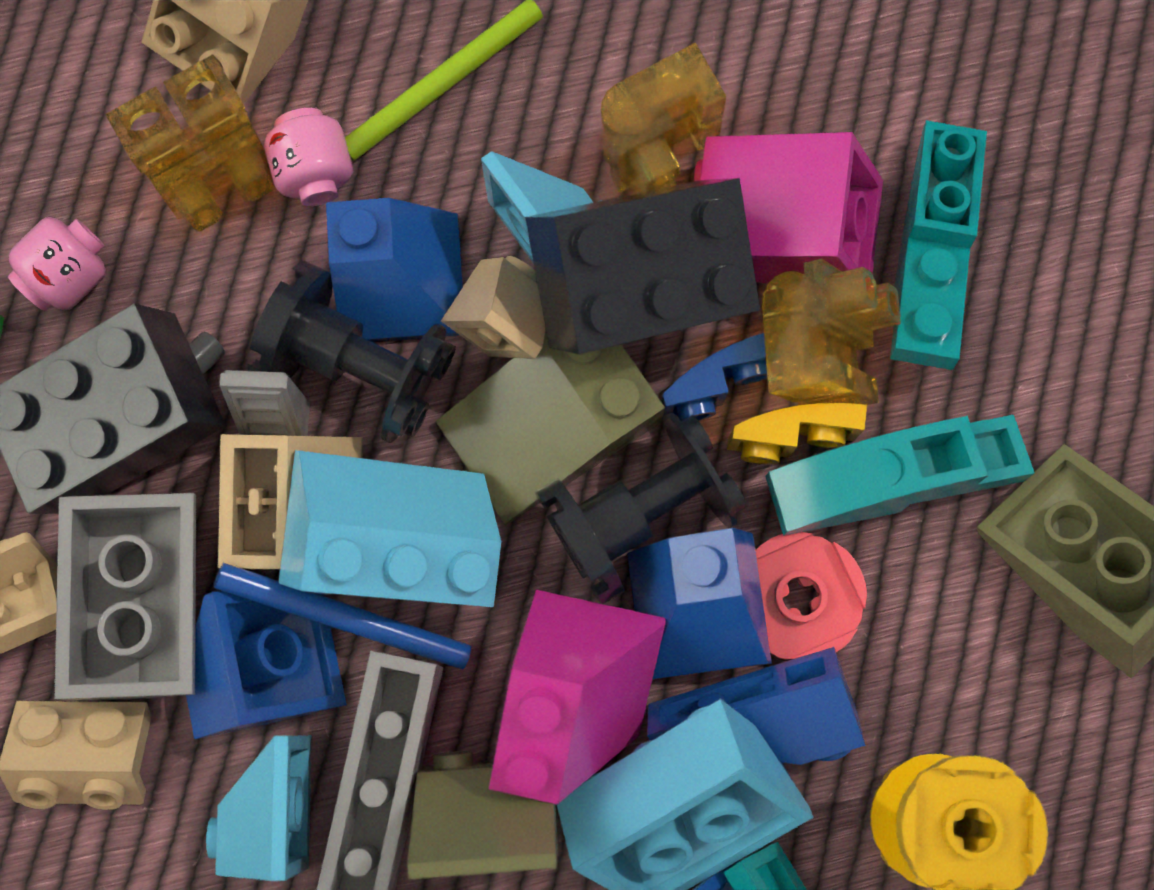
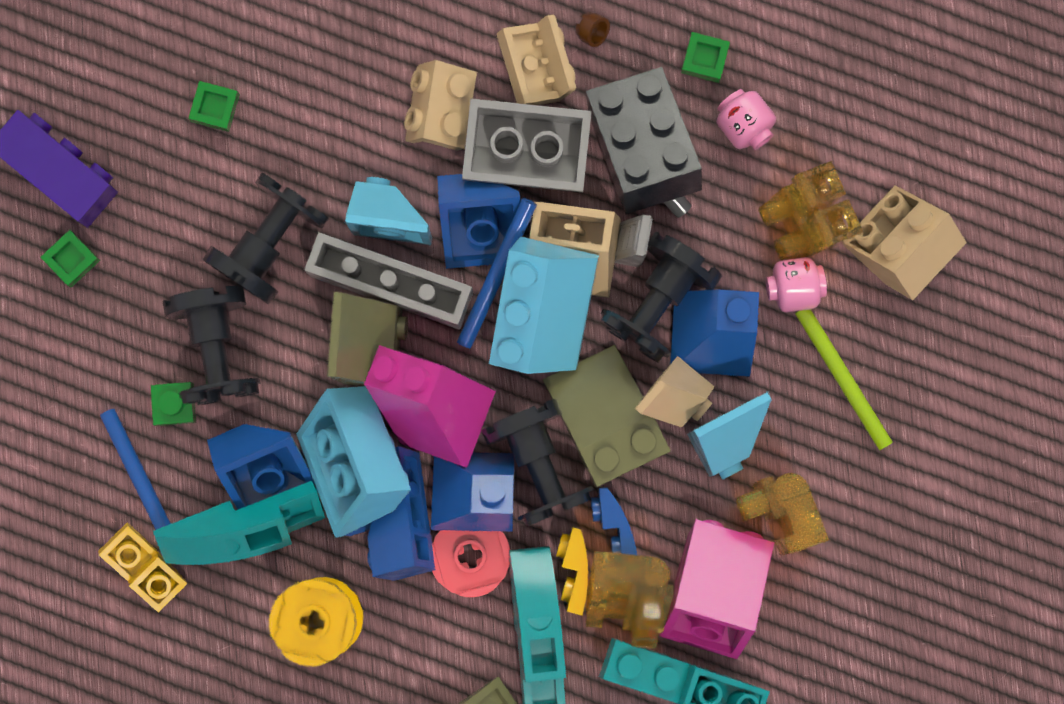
camera: 95 degrees right, 5 degrees up
(643, 264) = (683, 483): black brick -> none

